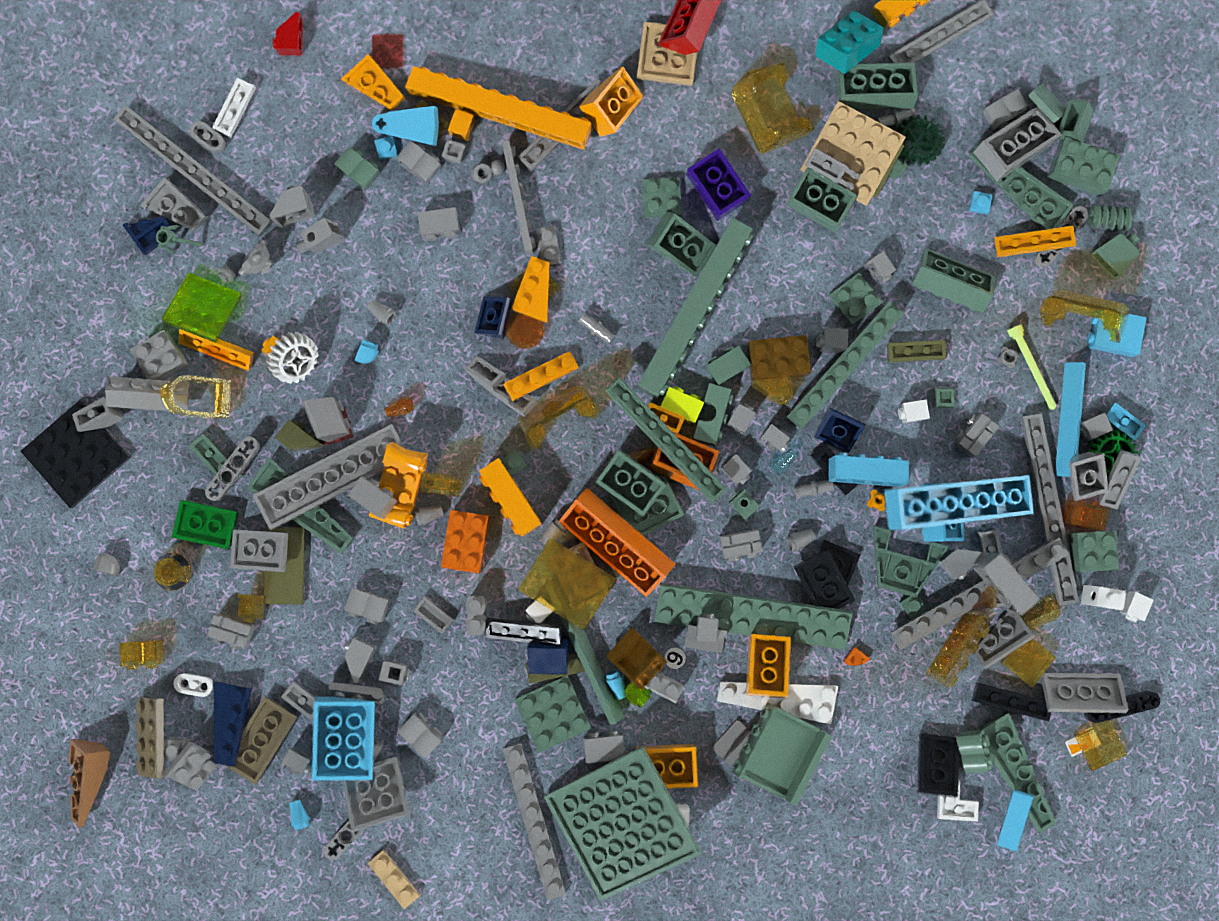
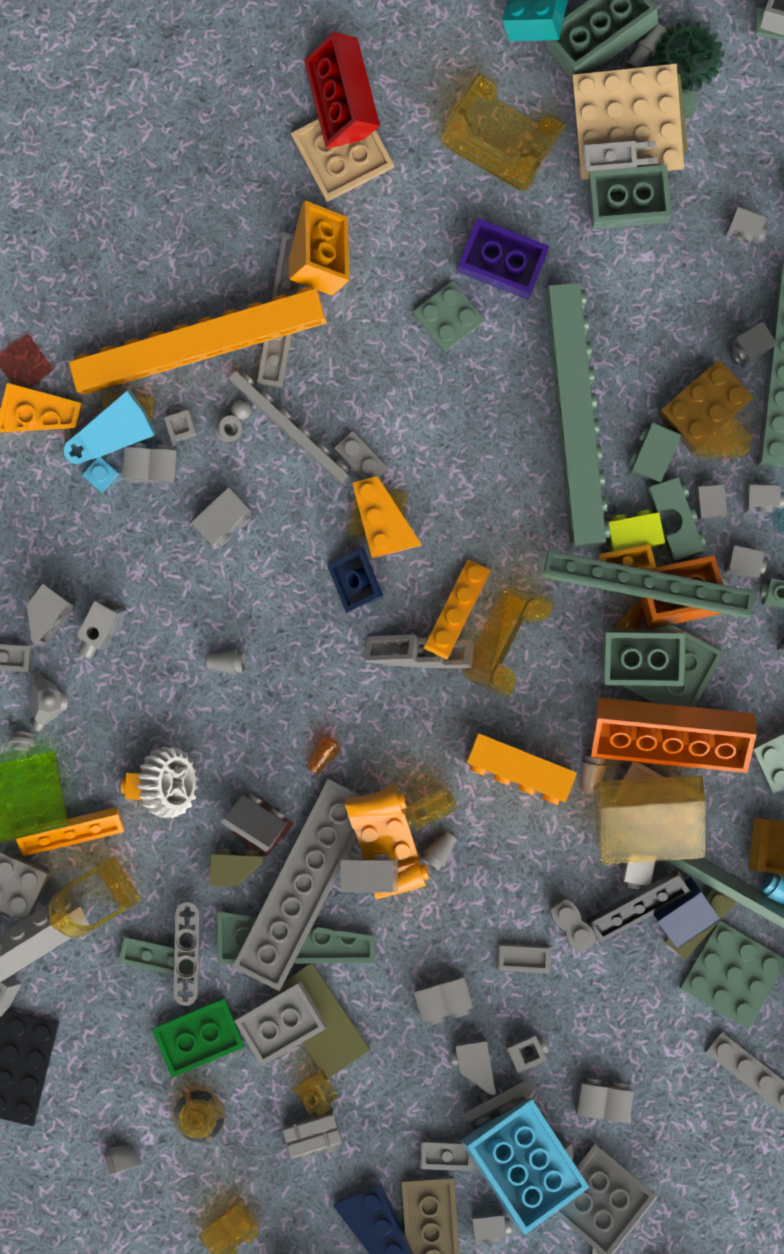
camera: 30 degrees left, 0 degrees up
(194, 684) = (313, 1224): white plate -> none
(357, 168) = (85, 519): sand green brick -> none
(367, 352) = (242, 718): medium azure piece -> none
(461, 124) = (168, 389): light orange brick -> none
(465, 541) = (503, 852): orange brick -> none
(513, 462) = (494, 725): sand green brick -> none
(524, 331) = (402, 572): clear orange tile -> none
(596, 328) = (479, 512): light grey pin -> none
(681, 244) = (507, 353): sand green slope -> none
(855, 299) = (742, 281): sand green plate -> none

